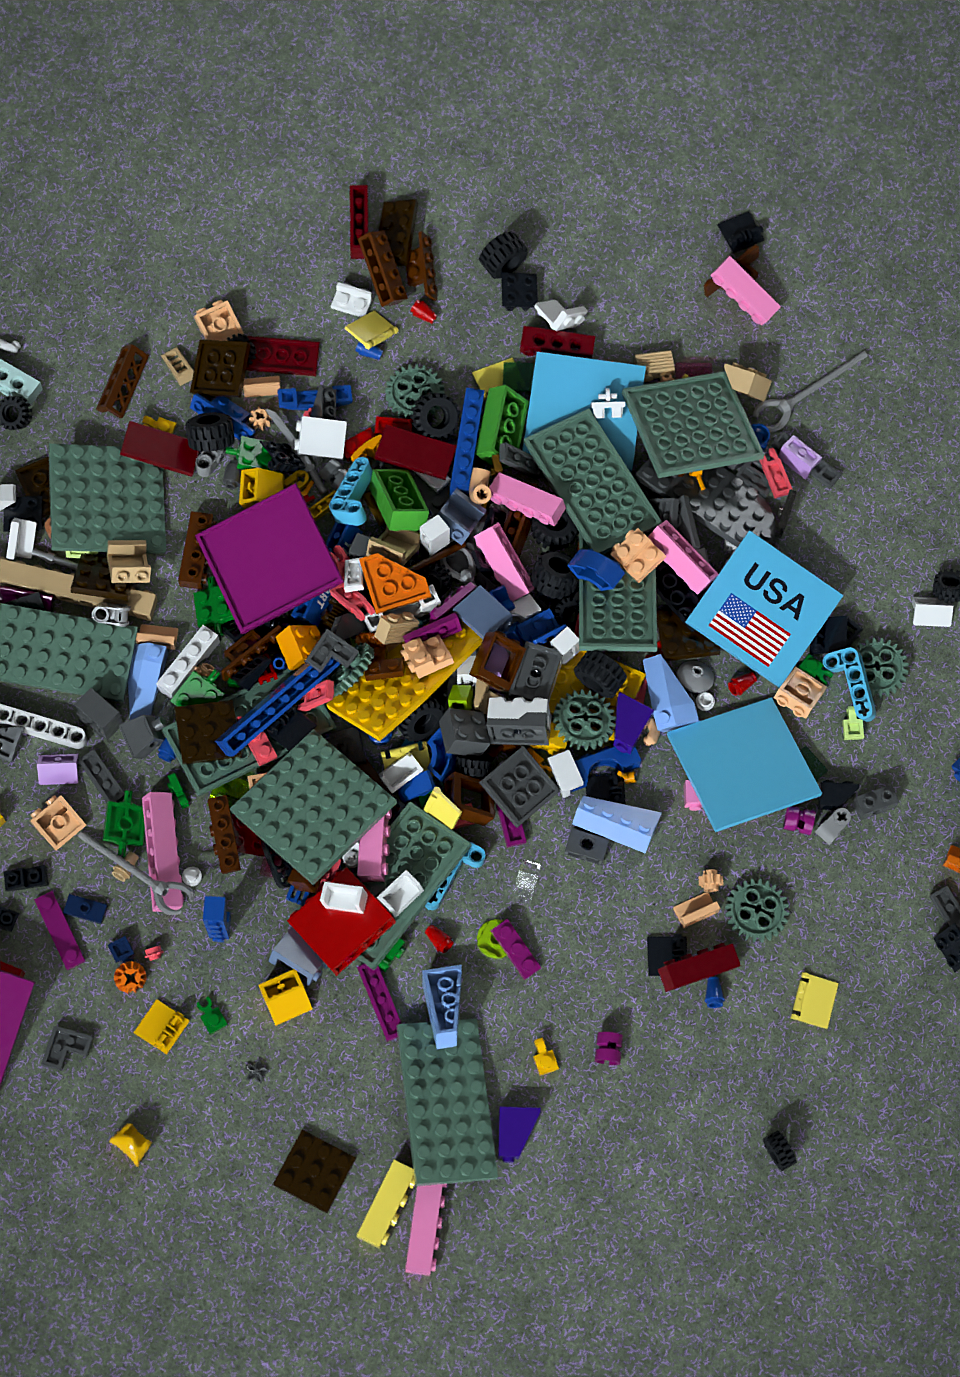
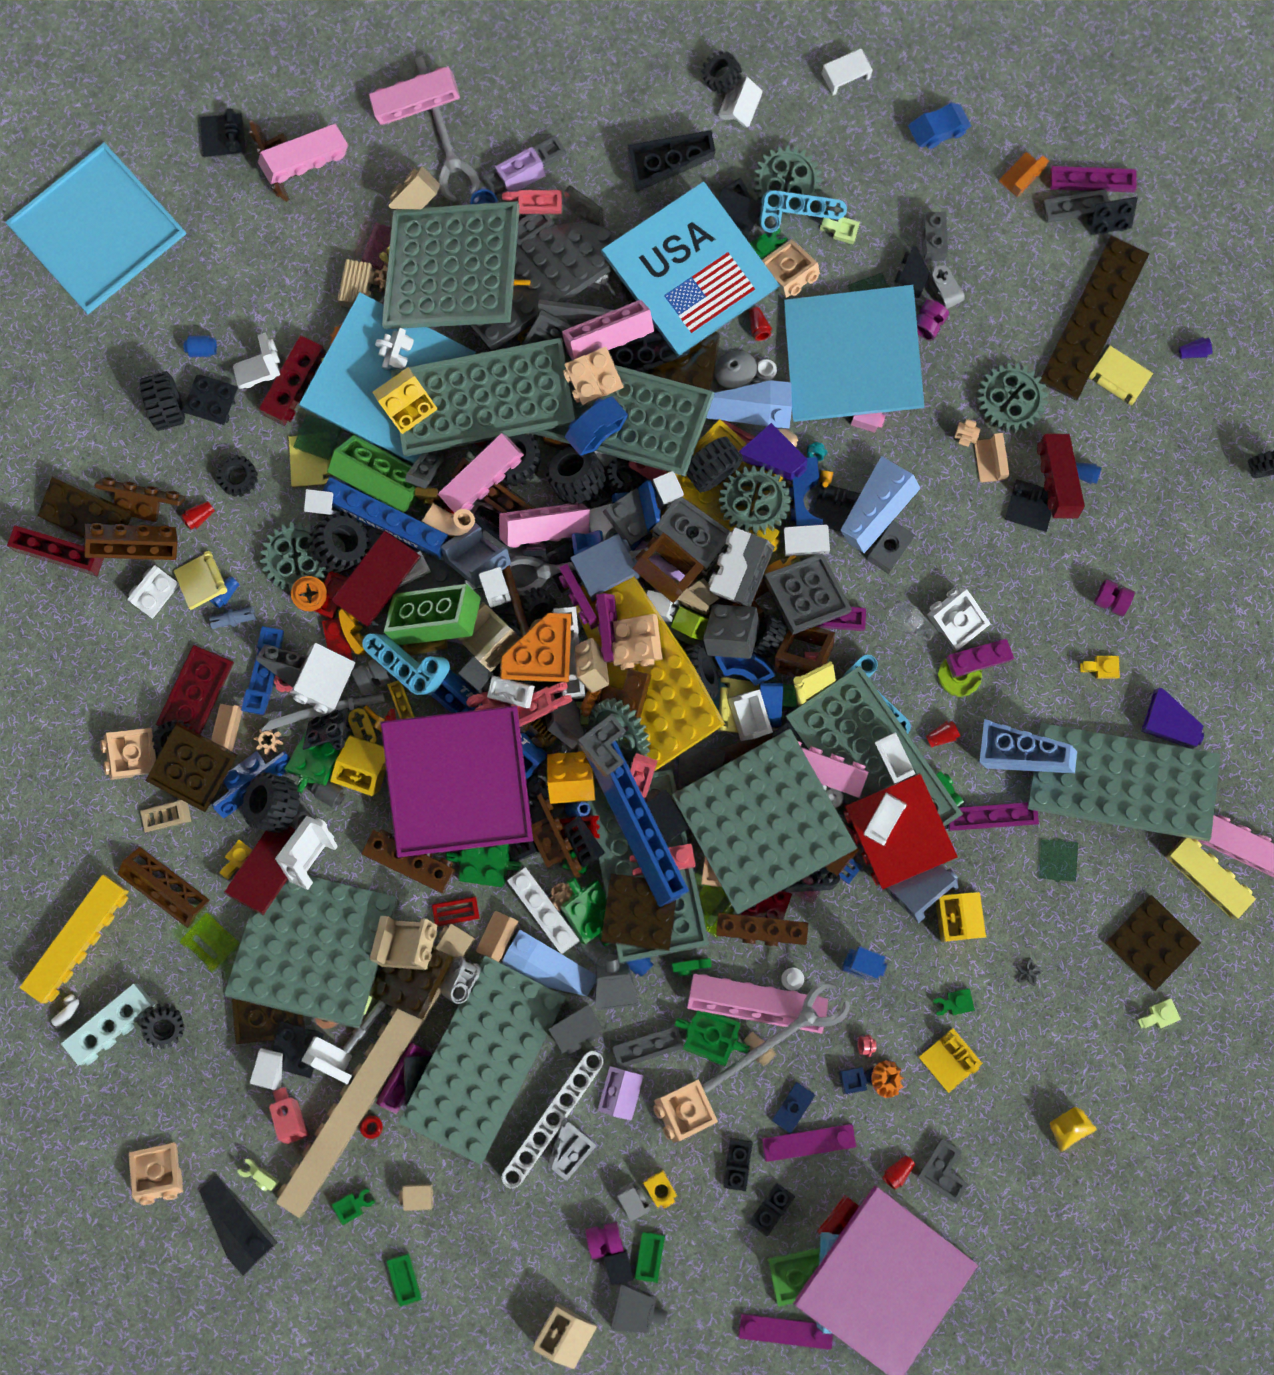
camera: 70 degrees left, 10 degrees up
(54, 1009) = (898, 1172): none -> red cone
(62, 332) = (74, 940): none -> yellow brick
(93, 431) = (215, 937): none -> clear neon green plate
(175, 612) = (436, 915): none -> red tile
(180, 467) = (303, 850): none -> white panel
(253, 1197) = (1161, 1014): none -> yellowish green plate
(350, 363) = (232, 617): none -> sand blue pin
(361, 1069) = (1058, 860): none -> clear green piece
(390, 401) = (300, 587): none -> orange gear
(460, 389) = (319, 502): none -> white panel
(462, 339) = (232, 464): none -> black tyre
(532, 623) = (628, 517): none -> dark grey wing
(544, 920) = (958, 617): none -> white plate
(560, 270) = (200, 346): none -> blue brick
(566, 423) = (404, 400): none -> yellow slope
(628, 169) = (96, 228): none -> medium azure tile
(649, 762) = (816, 448): none -> teal plate
(829, 357) = (414, 95): none -> bright pink brick
(856, 565) = (667, 157): none -> black wedge
(858, 962) = (1094, 318): none -> dark brown plate
(864, 1060) = (1196, 349): none -> dark purple cone

